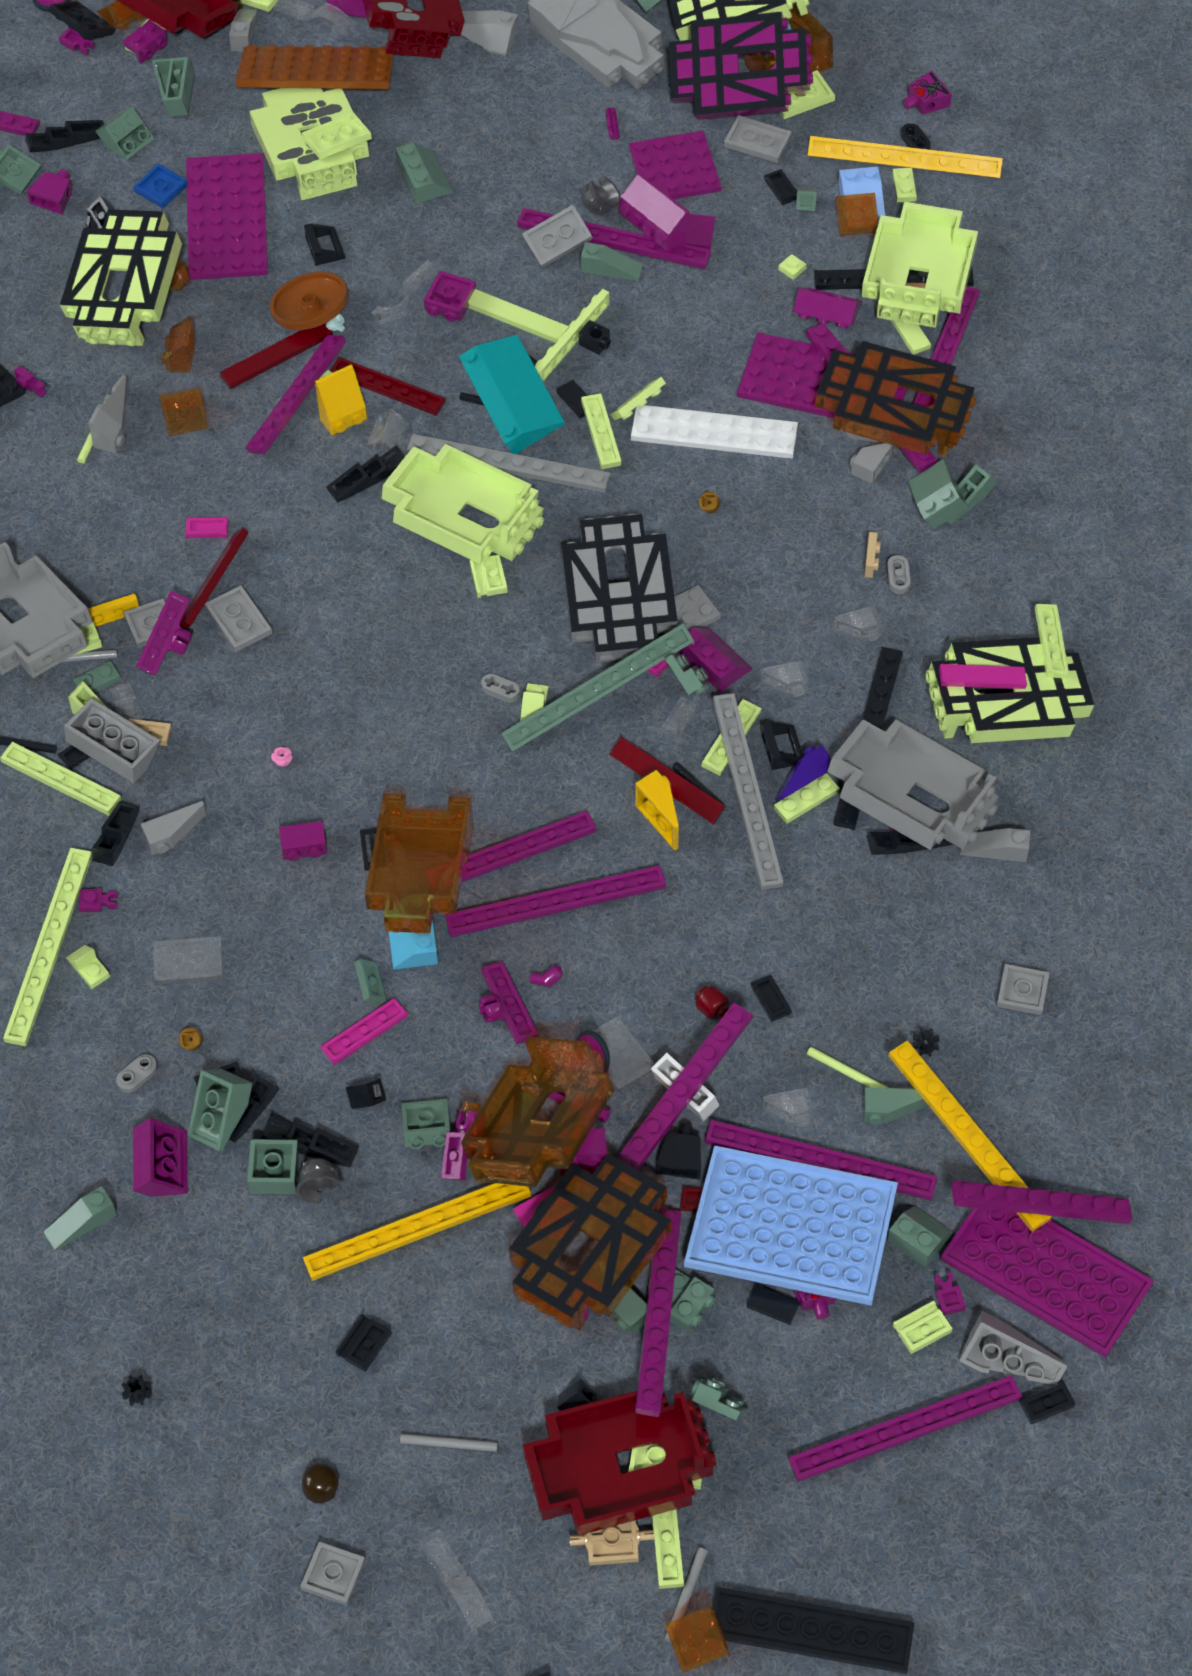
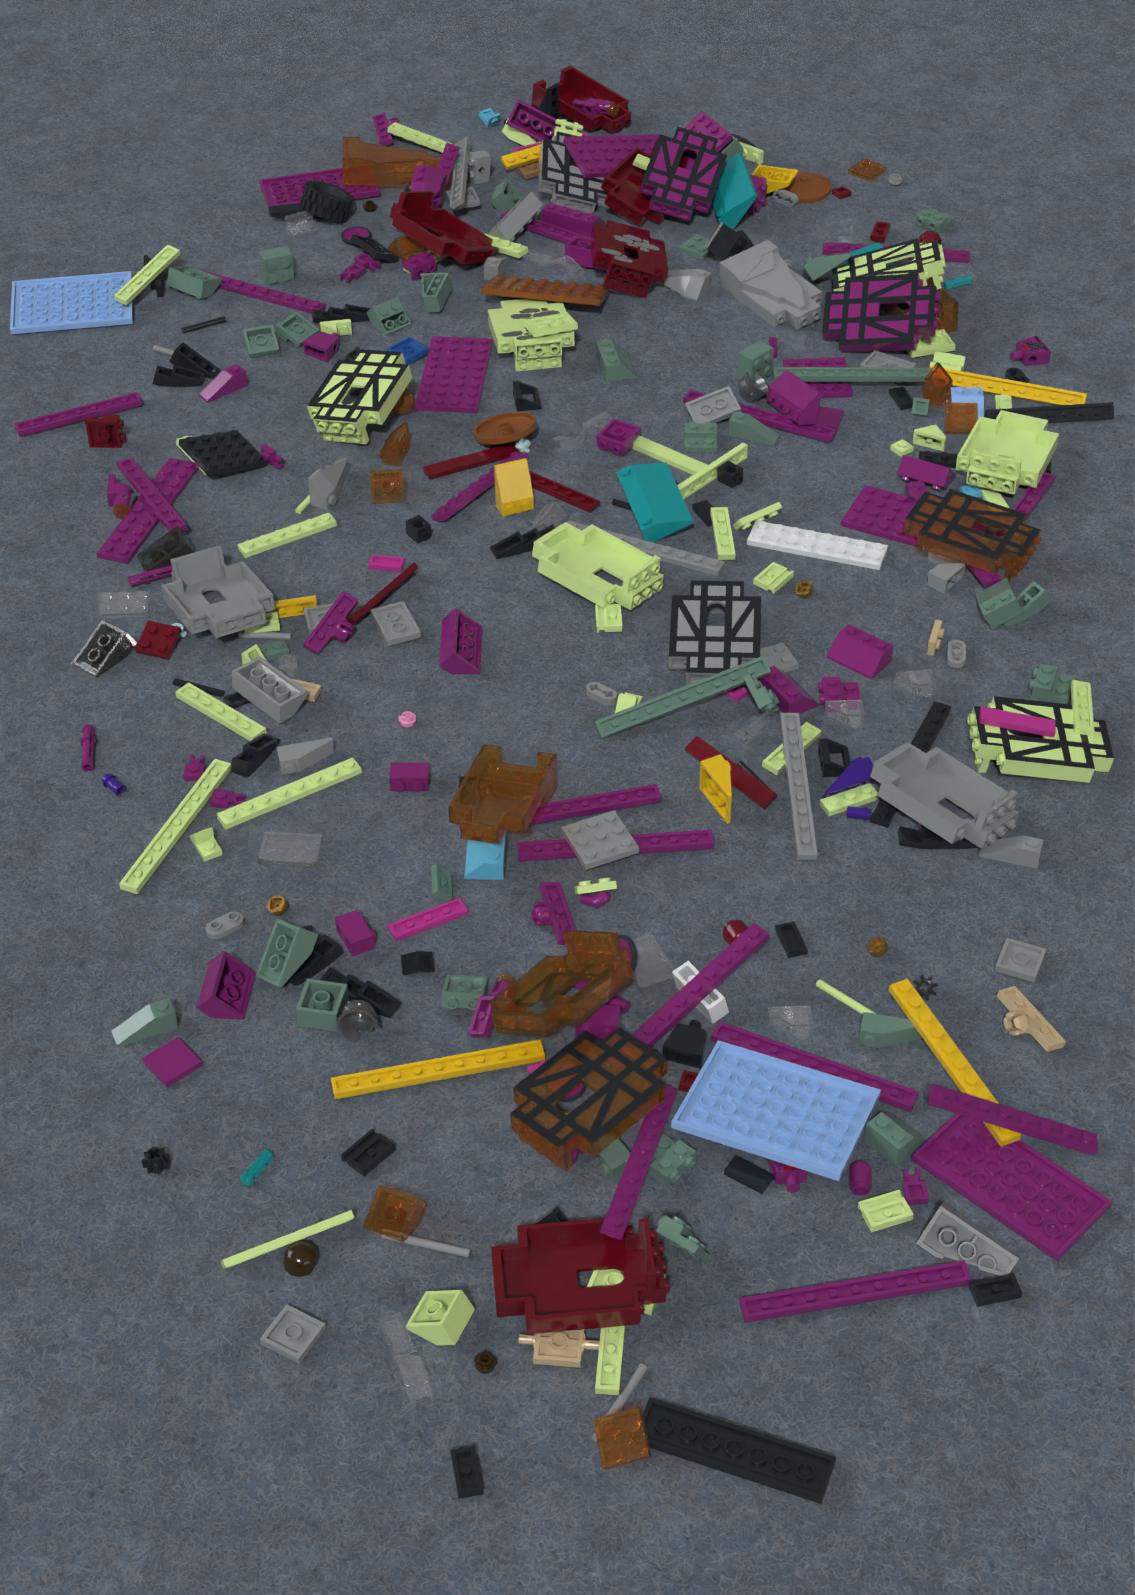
camera: 10 degrees right, 15 degrees down
(50, 864) = (194, 769): none -> magenta plate
(61, 60) = (352, 271): none -> magenta plate
(62, 160) = (341, 327): none -> yellowish green slope
(76, 500) = (287, 535): none -> yellowish green plate
(122, 1261) = (172, 1062): none -> magenta tile
(167, 881) = (289, 793): none -> yellowish green plate
(235, 472) = (418, 529): none -> black brick
(247, 1380) = (256, 1167): none -> teal axle
(287, 1063) = (355, 932): none -> magenta brick
(301, 1464) = (287, 1239): none -> yellowish green tile
(322, 640) = (460, 644): none -> magenta slope
(409, 1416) = (394, 1213): none -> clear orange slope
(484, 1529) = (441, 1316): none -> yellowish green slope
(538, 899) = (600, 840): none -> light grey plate
(538, 964) = (587, 887): none -> yellowish green plate
(541, 1578) = (485, 1367): none -> dark brown plate
(548, 281) = (700, 437): none -> sand green plate
(597, 157) = (755, 360): none -> sand green brick
(671, 489) = (773, 577): none -> yellowish green plate
(719, 161) = (855, 374): none -> sand green plate
(772, 649) = (833, 690): none -> magenta plate
(789, 588) = (860, 651): none -> magenta slope
(820, 816) = (859, 813): none -> dark purple pin
(823, 169) = (937, 386): none -> clear orange slope
(824, 248) = (930, 437): none -> yellowish green slope
(829, 125) = (949, 360): none -> yellowish green bracket
(867, 995) = (877, 947): none -> pearl gold tile
(882, 326) = (970, 490): none -> medium azure tile
(891, 1292) = (860, 1178): none -> magenta brick
(966, 191) = (1062, 413): none -> black plate
(1012, 603) = (1050, 684): none -> sand green plate
(1040, 1066) = (1027, 1019): none -> tan plate

